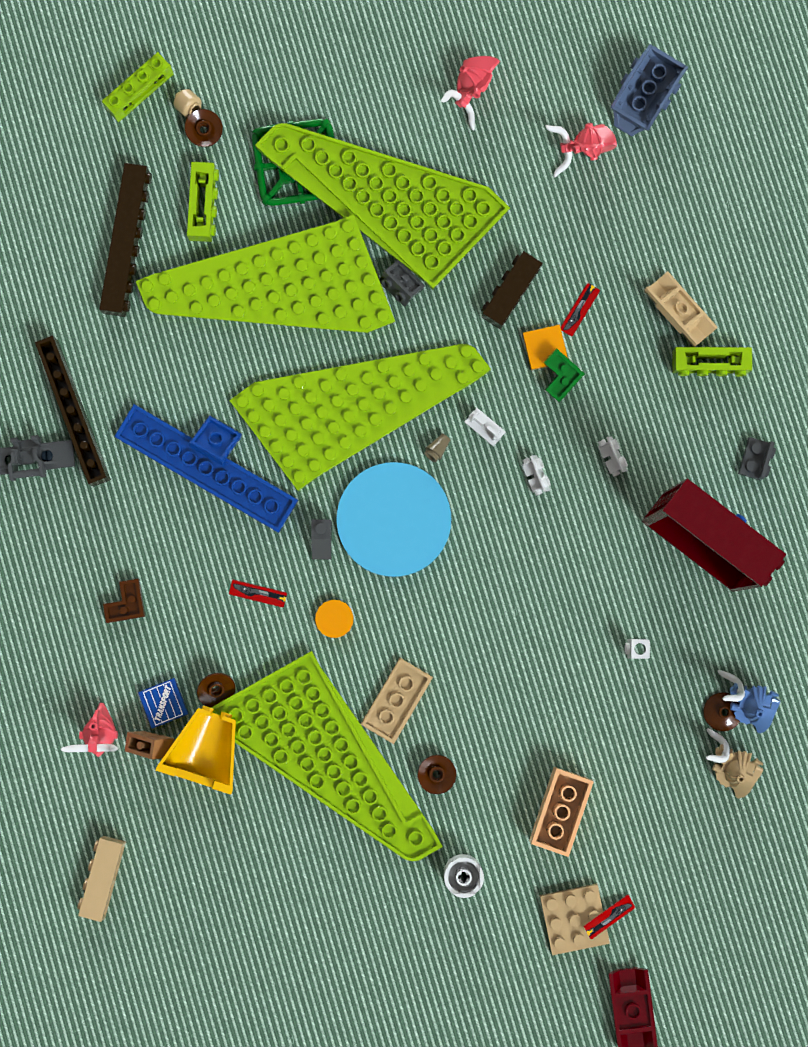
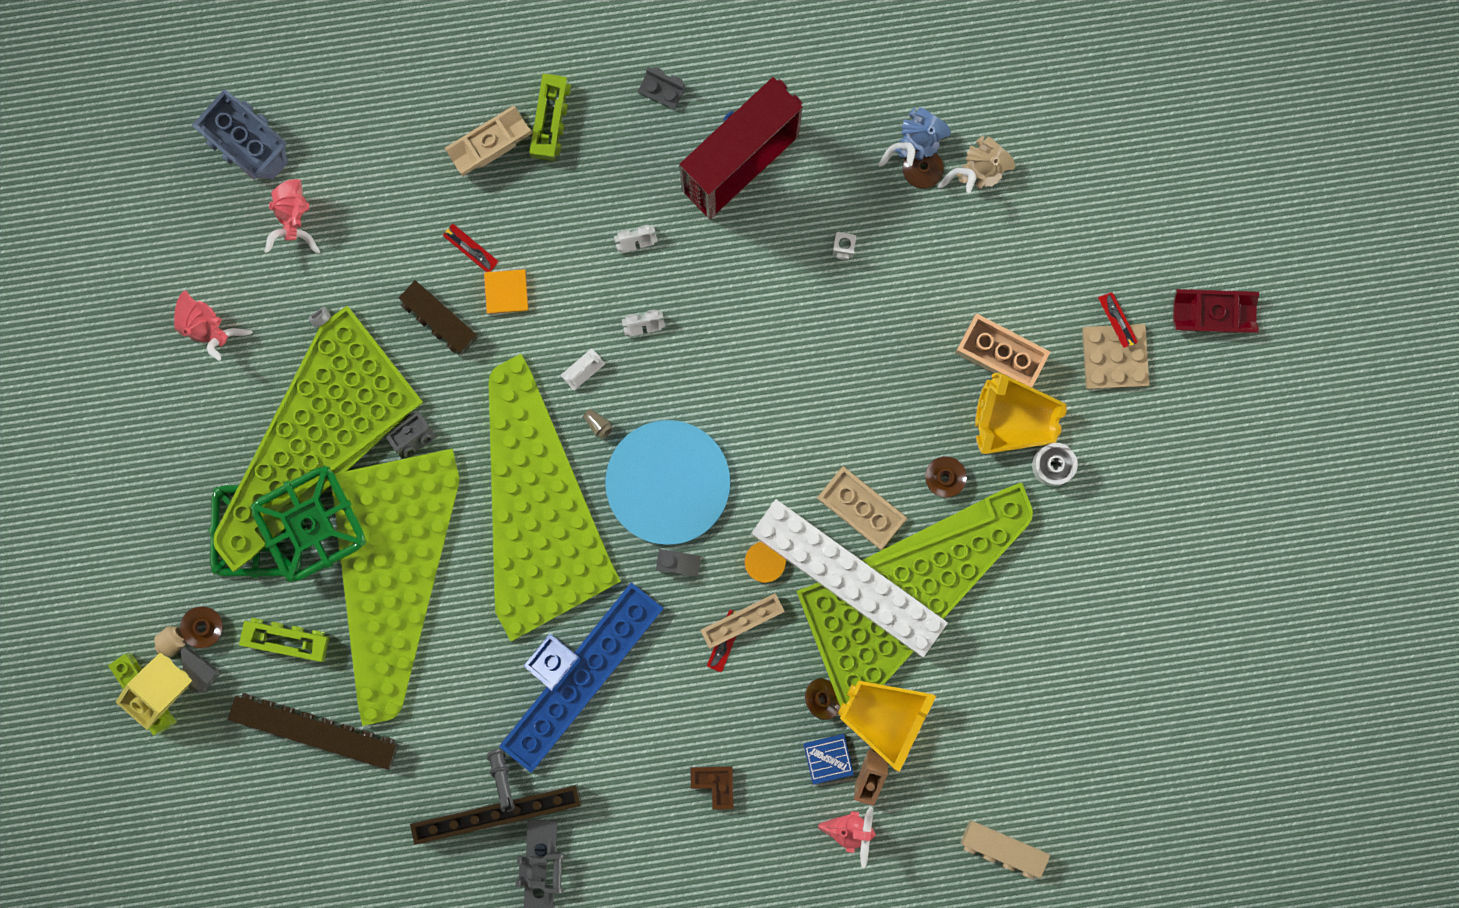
camera: 80 degrees left, 0 degrees up
(110, 408) = (499, 771): none -> dark grey pin
(139, 93) = (153, 690): none -> light yellow slope
(165, 131) = (198, 670): none -> dark grey slope
(277, 605) = (742, 620): none -> tan plate
(318, 205) = (295, 519): none -> green plate
(328, 698) = (849, 578): none -> white brick
(495, 185) = (319, 317): none -> light grey tile
(503, 832) = (1015, 416): none -> yellow cone
(567, 375) = (540, 273): green plate -> none

